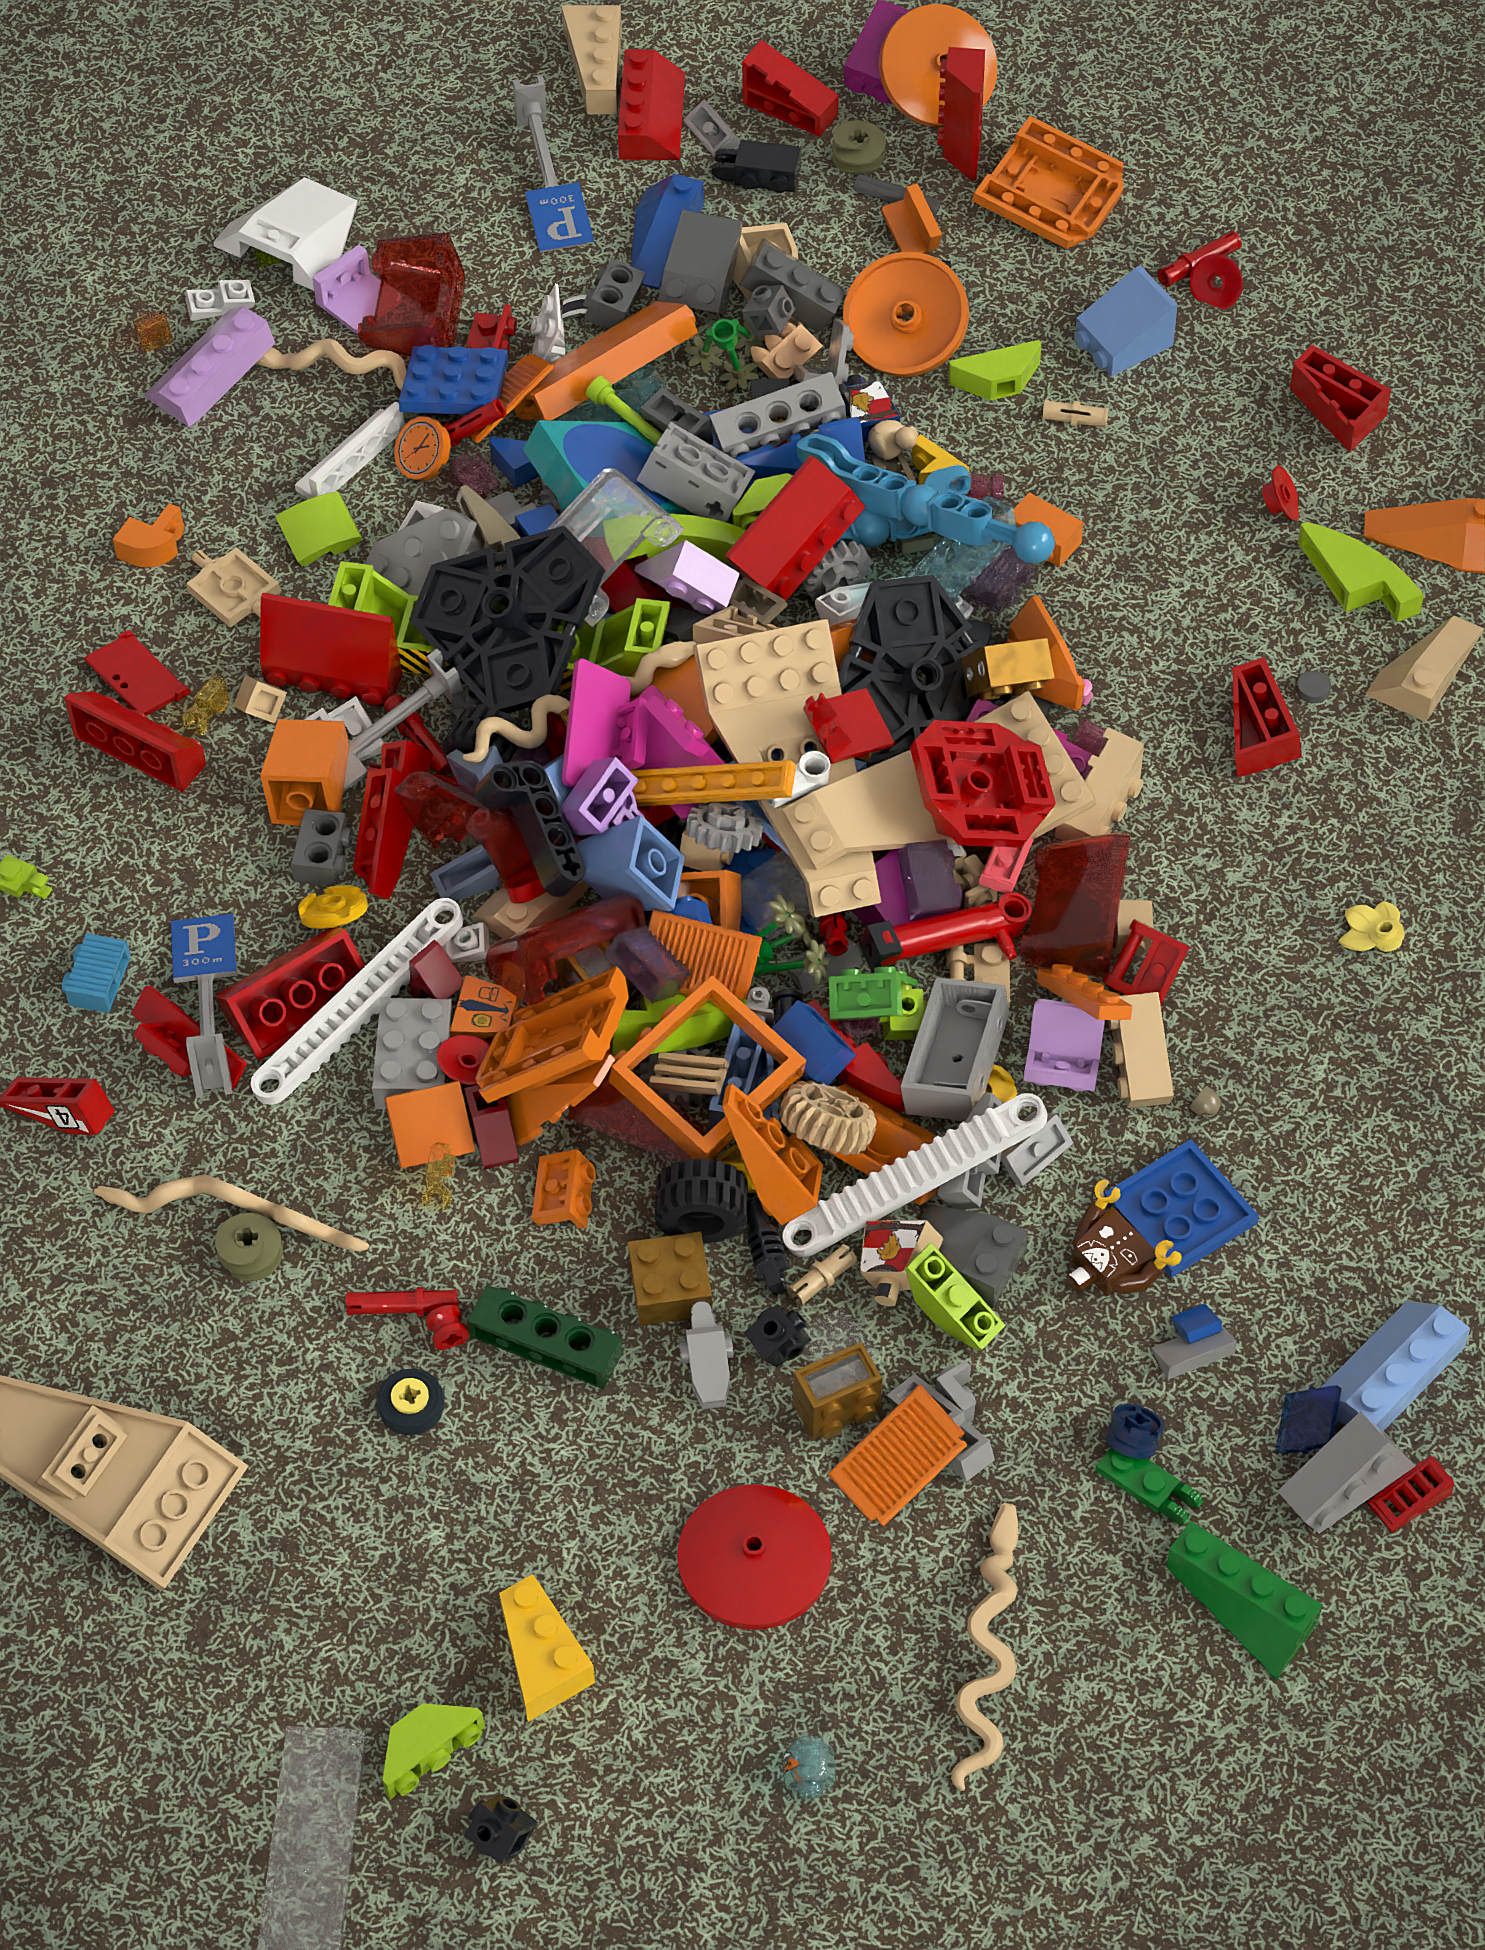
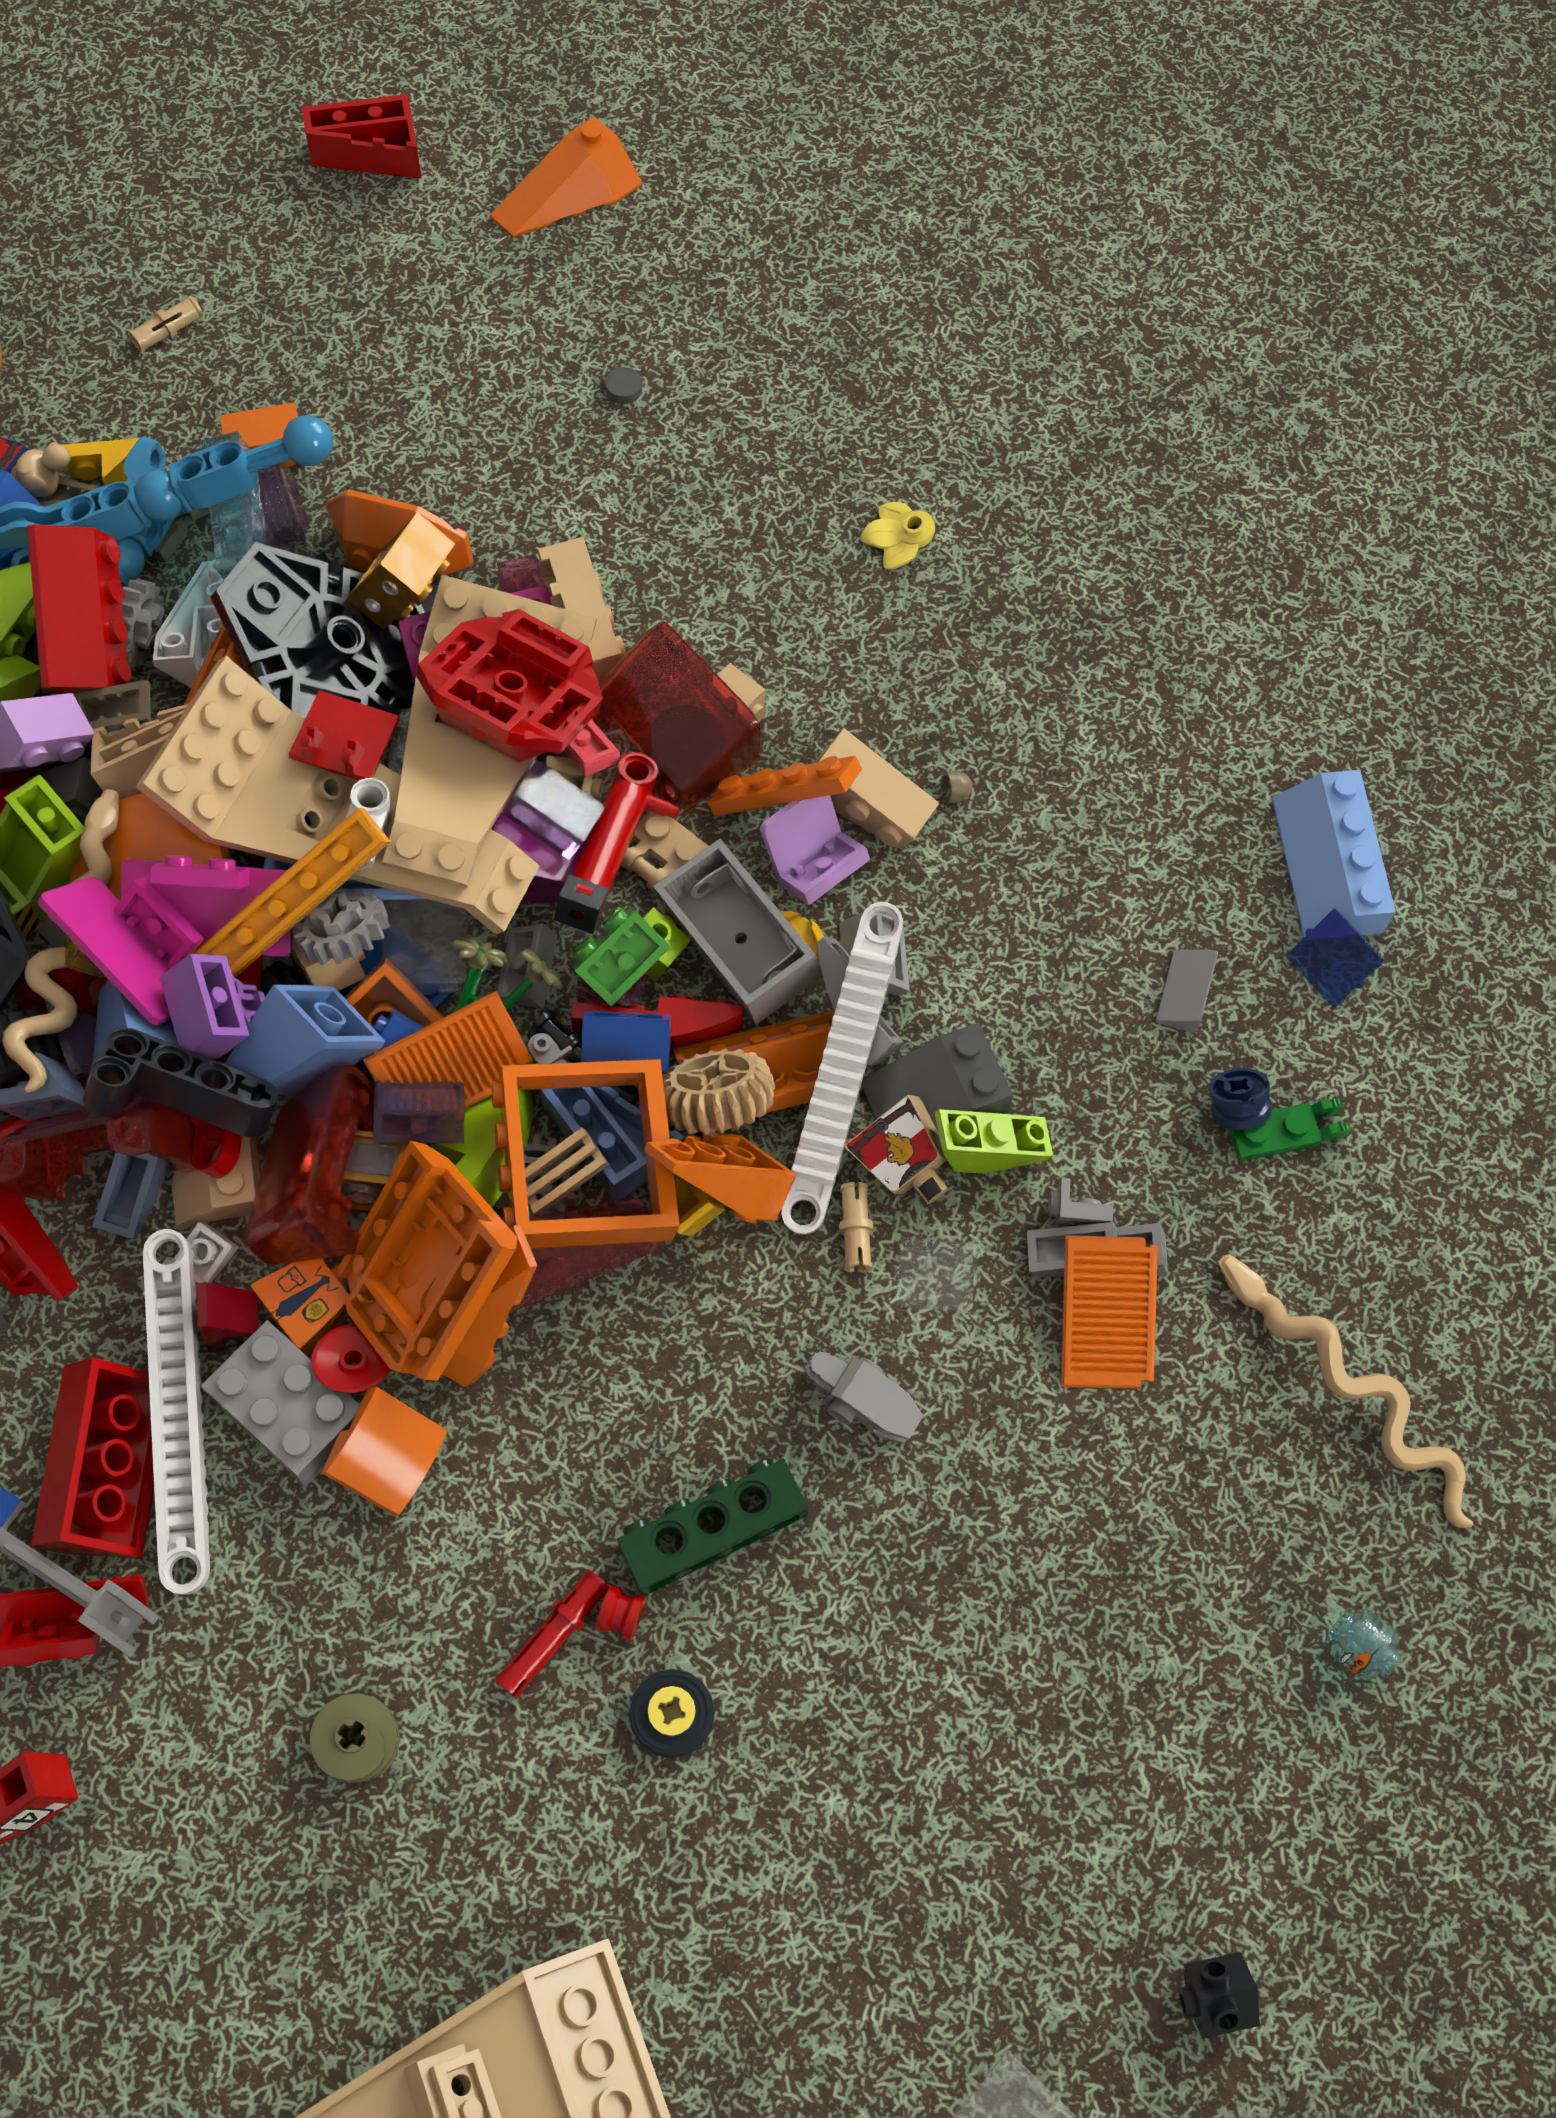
camera: 55 degrees left, 10 degrees up
(209, 1185) = (284, 1714): tan animal -> none
(334, 908) = (41, 1348): yellow tile -> none
(425, 1743) = (1067, 1999): lime slope -> none
(439, 1166) = (441, 1478): clear yellow plate -> none
(491, 1129) = (448, 1402): dark red slope -> none
(543, 1648) = (1053, 1798): yellow wedge -> none
(563, 1189) = (563, 1382): orange bracket -> none
(668, 1277) = (750, 1362): pearl gold piece -> none
(701, 1198) = (703, 1270): black tyre -> none
(761, 1585) = (1092, 1560): red dish -> none
(766, 1248) = (785, 1251): black hinge -> none
(778, 1335) = (898, 1330): black brick -> none
(833, 929) = (517, 933): red pin -> none
(837, 1391) = (1006, 1311): pearl gold piece -> none
(980, 484) = (177, 440): clear pink wheel -> none
(997, 371) = (56, 343): lime slope -> none
(1113, 1252) = (1046, 973): reddish brown torso -> none
(1128, 323) = (123, 209): medium blue slope -> none
(1158, 966) = (799, 715): red plate -> none
(1182, 267) = (109, 123): red pin -> none
(1185, 1203) = (1043, 888): blue plate -> none
(1197, 1323) = (1167, 966): blue tile -> none
(1203, 282) = (166, 133): red piece -> none
(1246, 1598) = (1479, 1141): green wedge -> none
(1261, 720) = (625, 442): red wedge -> none
(1281, 494) = (415, 254): red piece -> none
(1345, 1473) = (1422, 974): light grey wedge -> none
(1359, 572) = (548, 264): lime slope -> none
(1426, 670) = (689, 299): tan wedge -> none
(1427, 1467) = (1462, 914): red slope -> none

